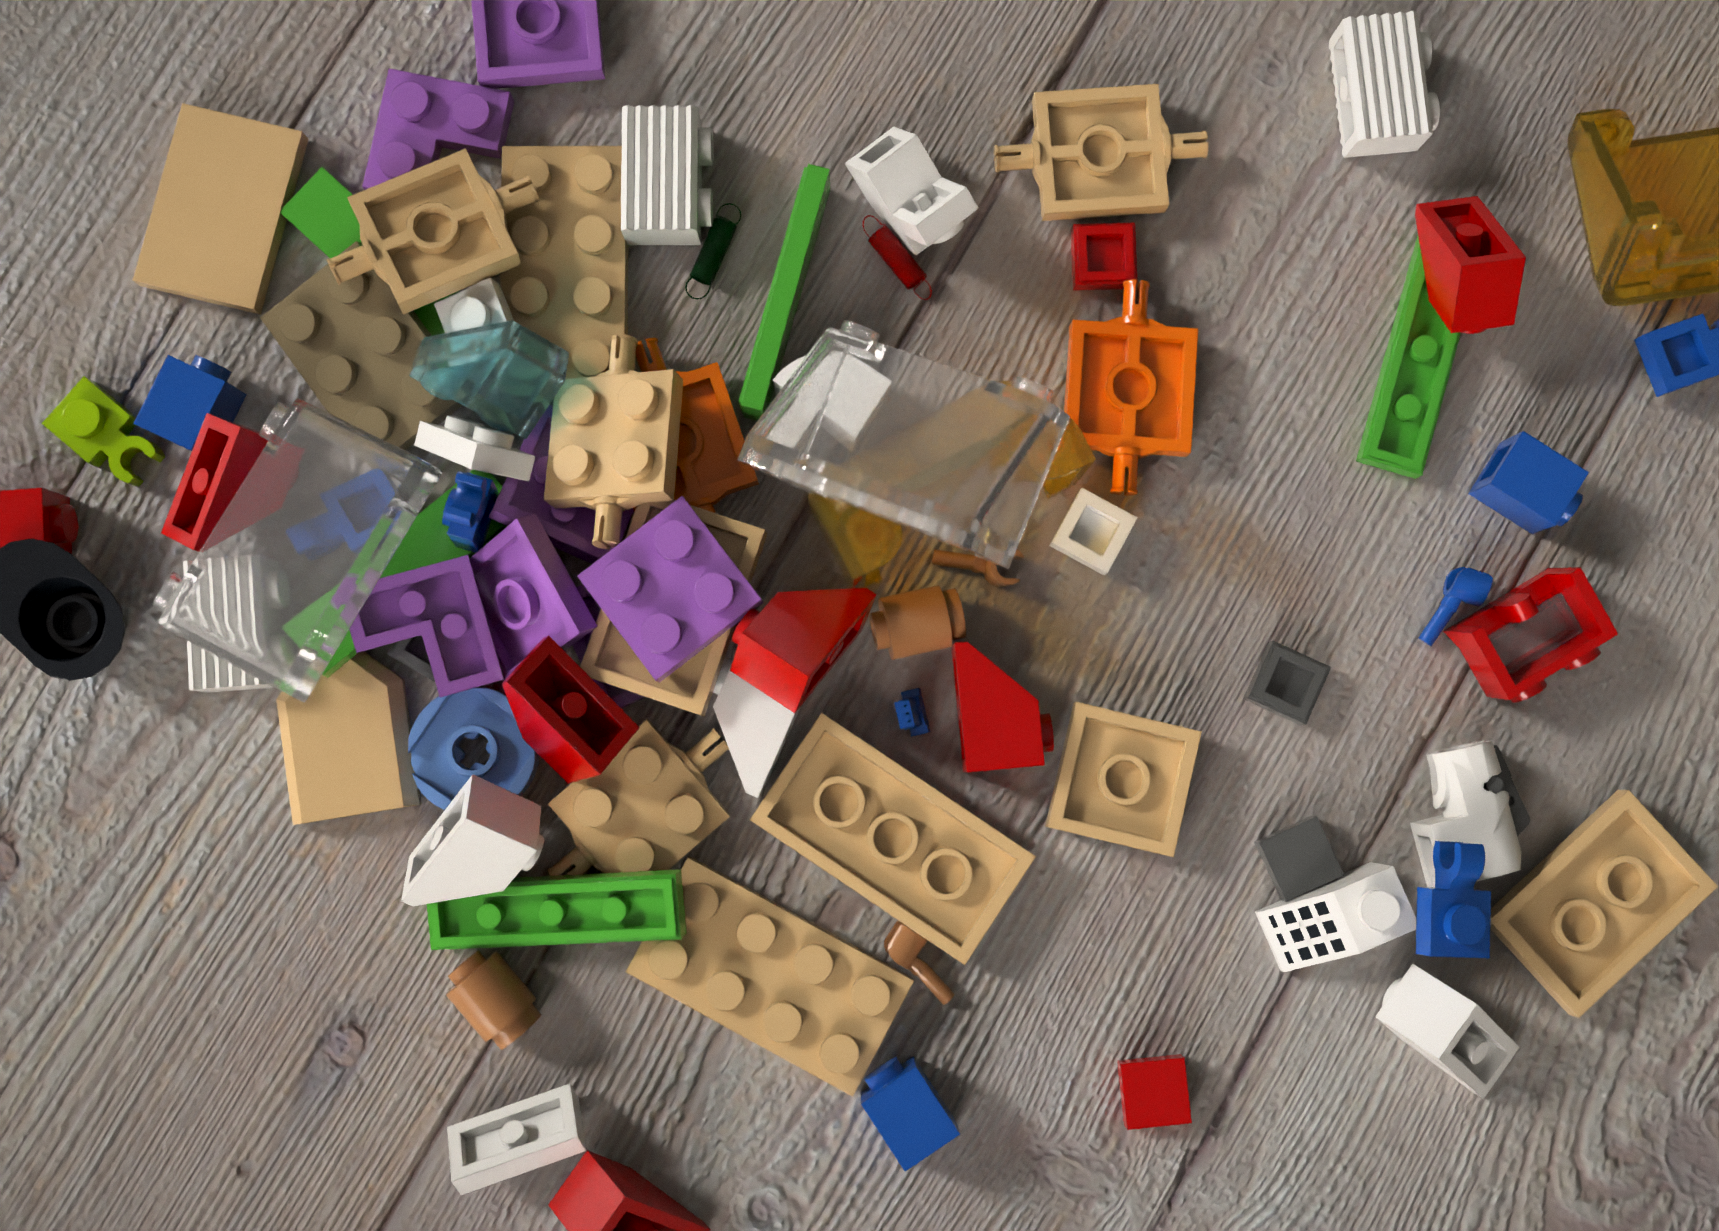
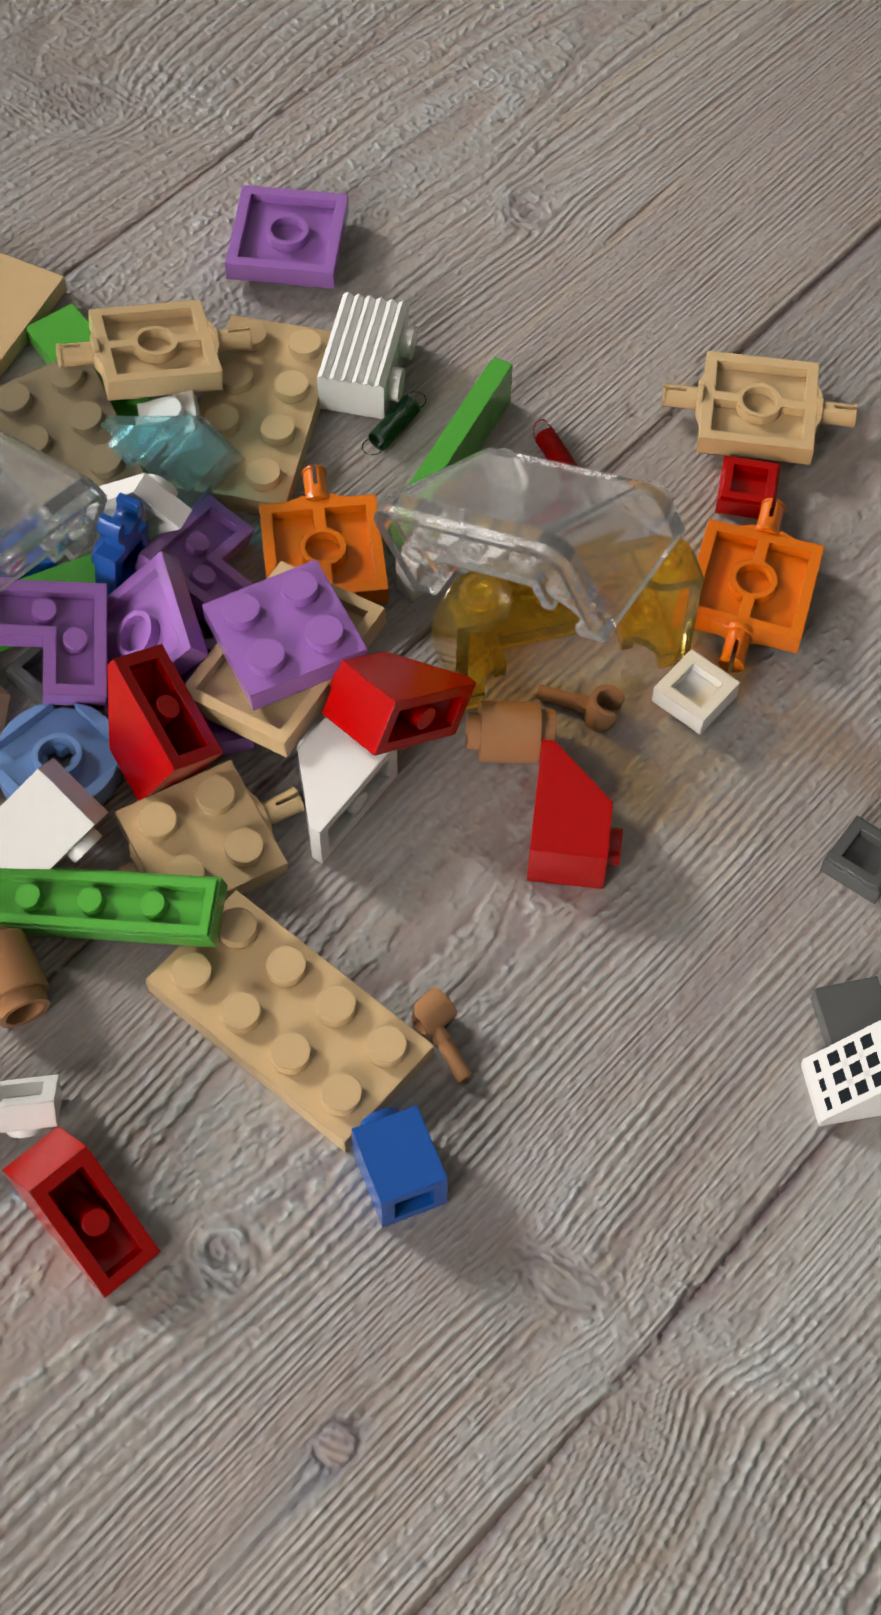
camera: 15 degrees right, 25 degrees down
(430, 114) = (172, 278): medium lavender plate -> none
(614, 441) = (265, 521): tan plate -> none
(893, 838) = (444, 913): tan plate -> none
(909, 190) = (579, 400): white brick -> none
(912, 712) = (488, 813): blue piece -> none
(1123, 779) = (684, 905): tan plate -> none
(1154, 1091) = (663, 1209): red tile -> none

